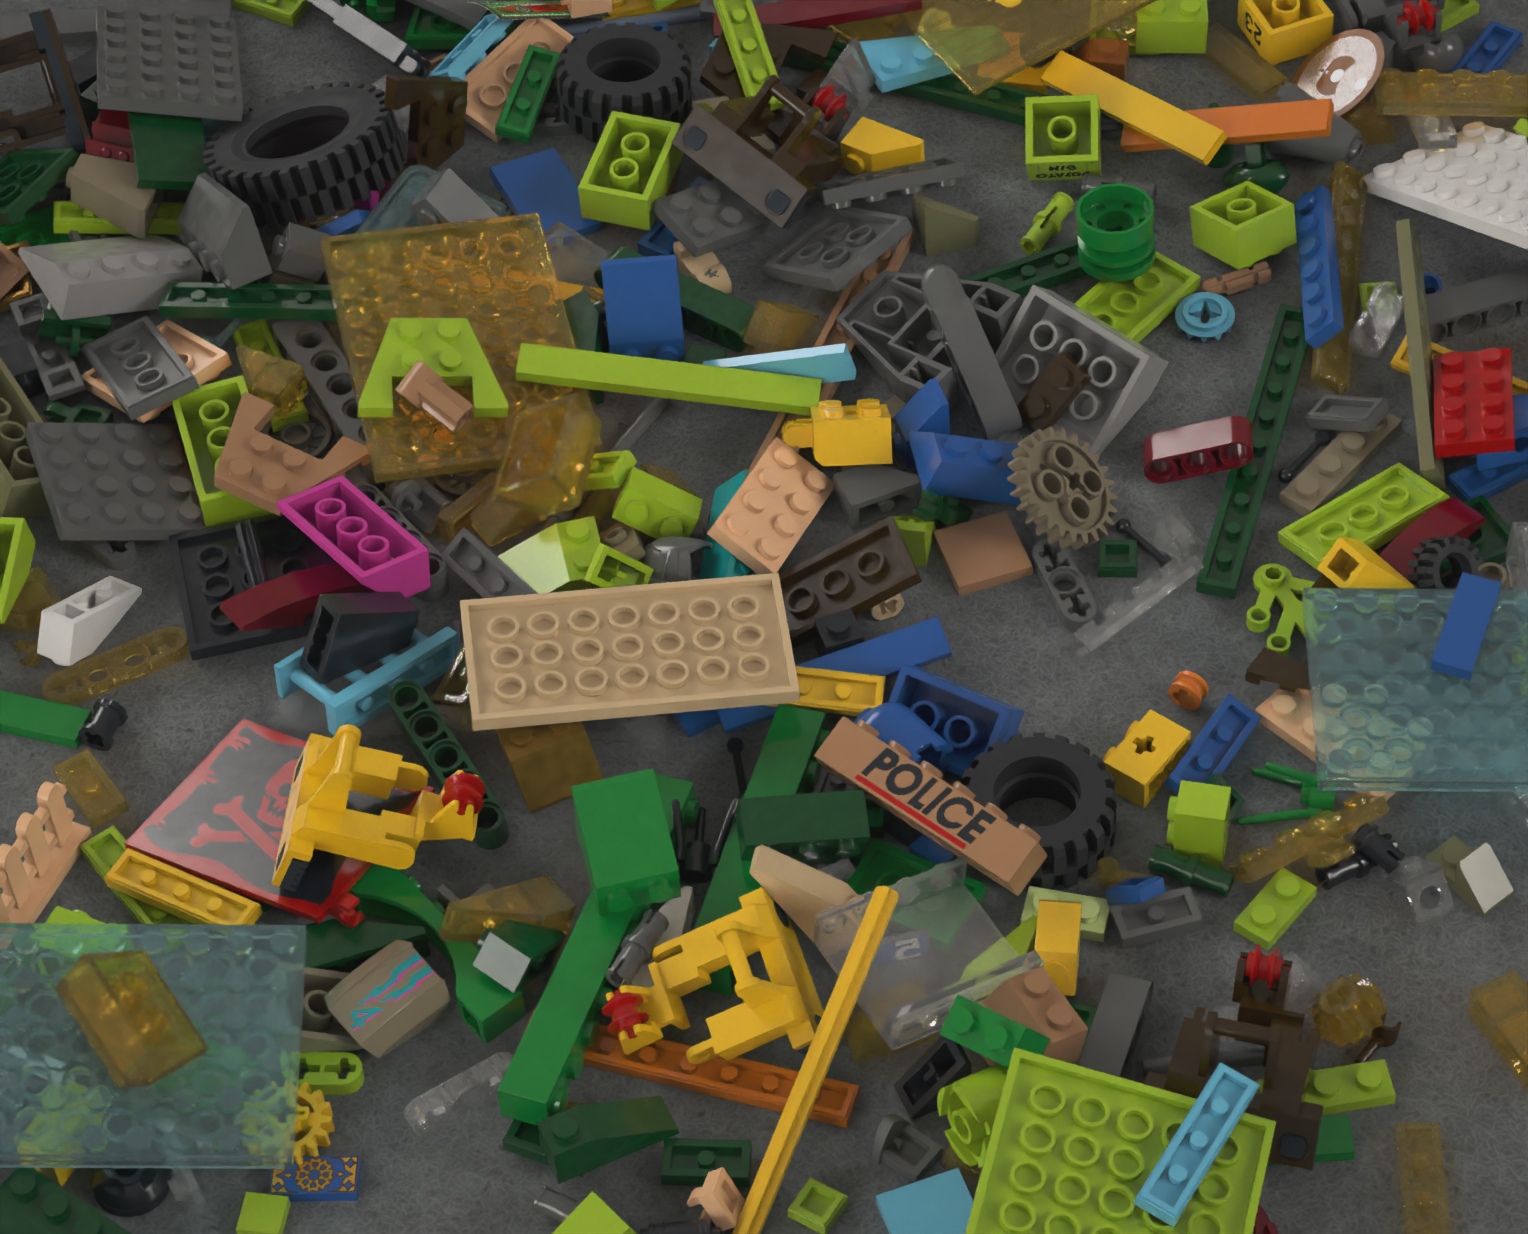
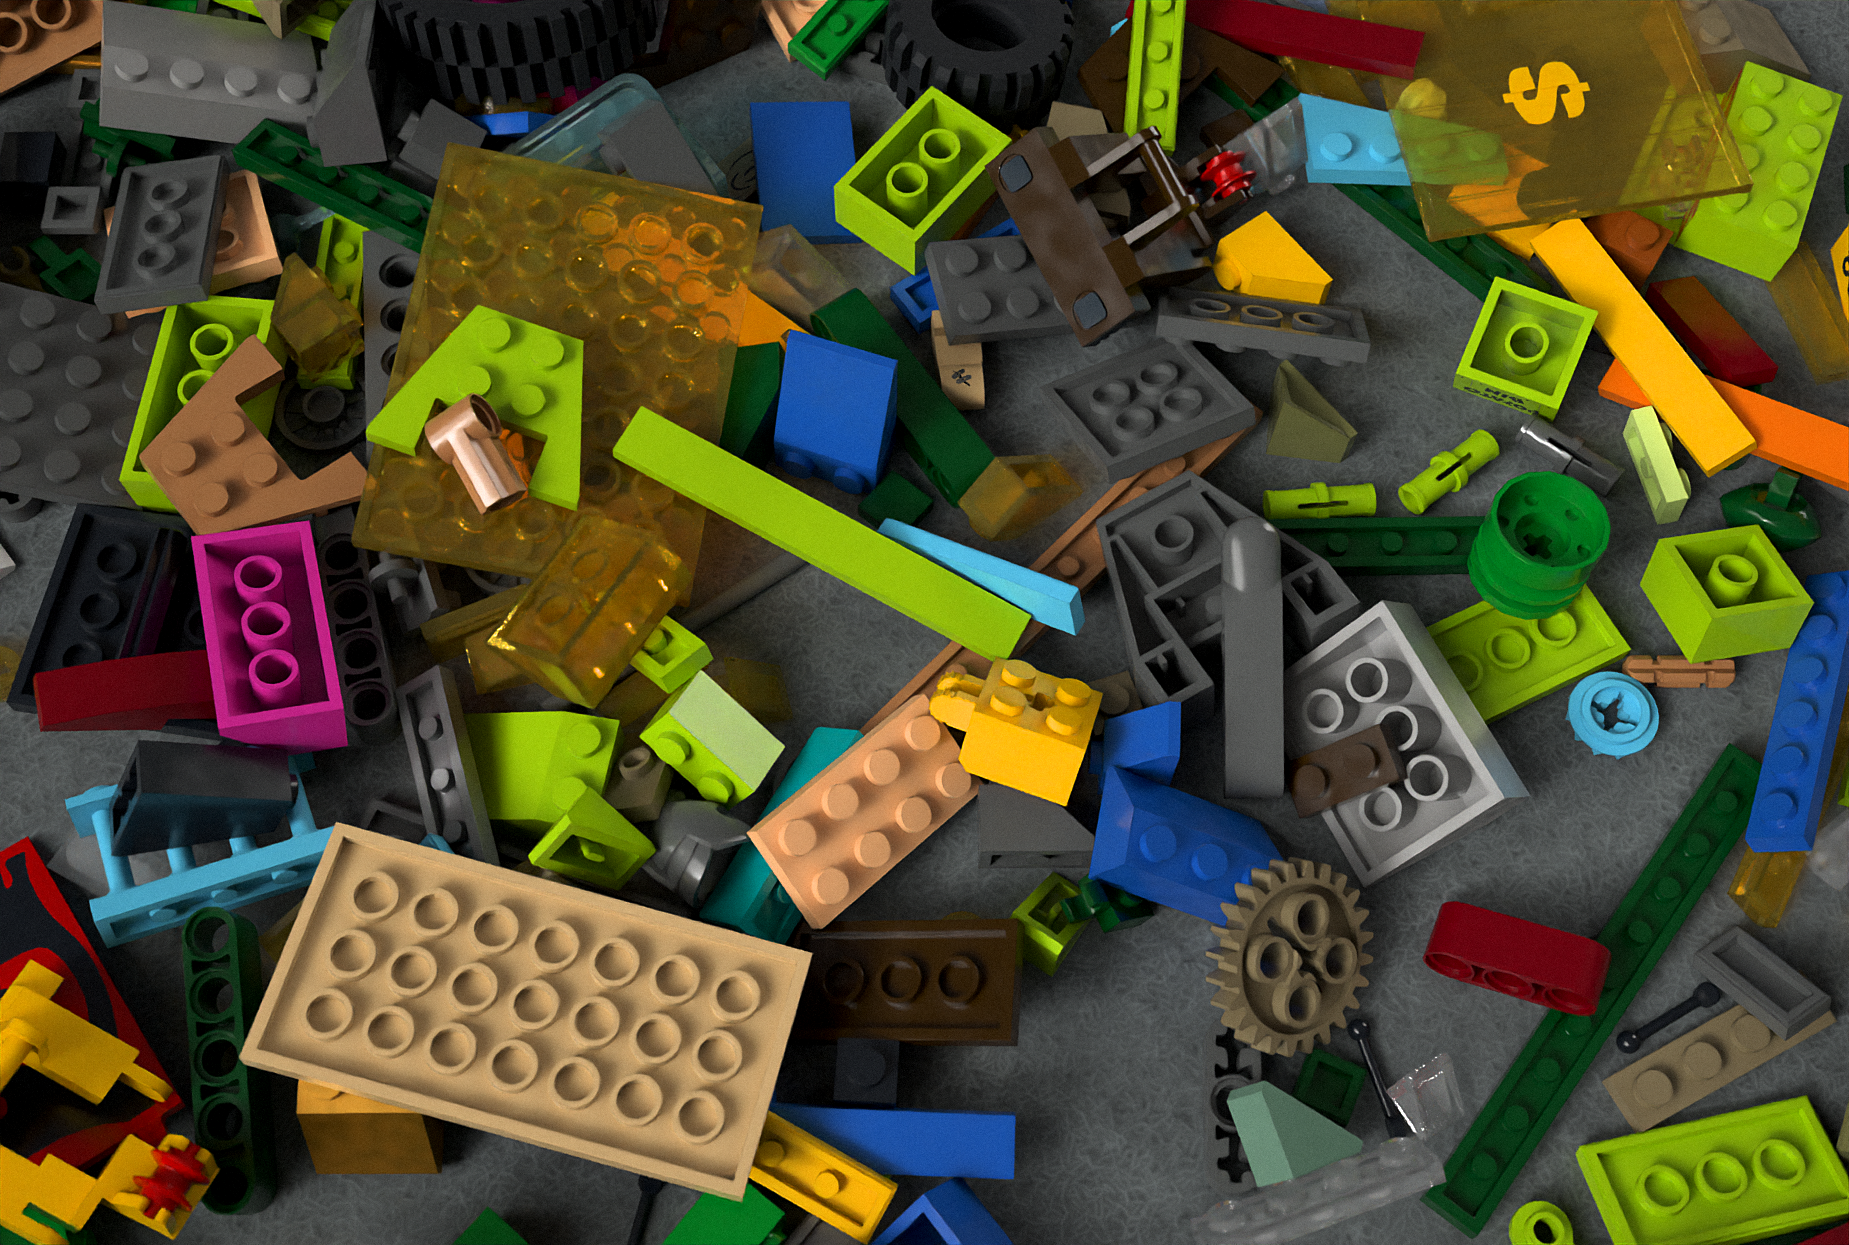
camera: 15 degrees right, 15 degrees up
(982, 553) = (1139, 993): medium nougat tile -> none
(991, 259) = (1353, 501): none -> lime pin
(1101, 576) = (1285, 1135): none -> sand green slope
(1168, 169) = (1651, 450): none -> yellowish green plate
(1178, 90) = (1711, 332): none -> dark red tile

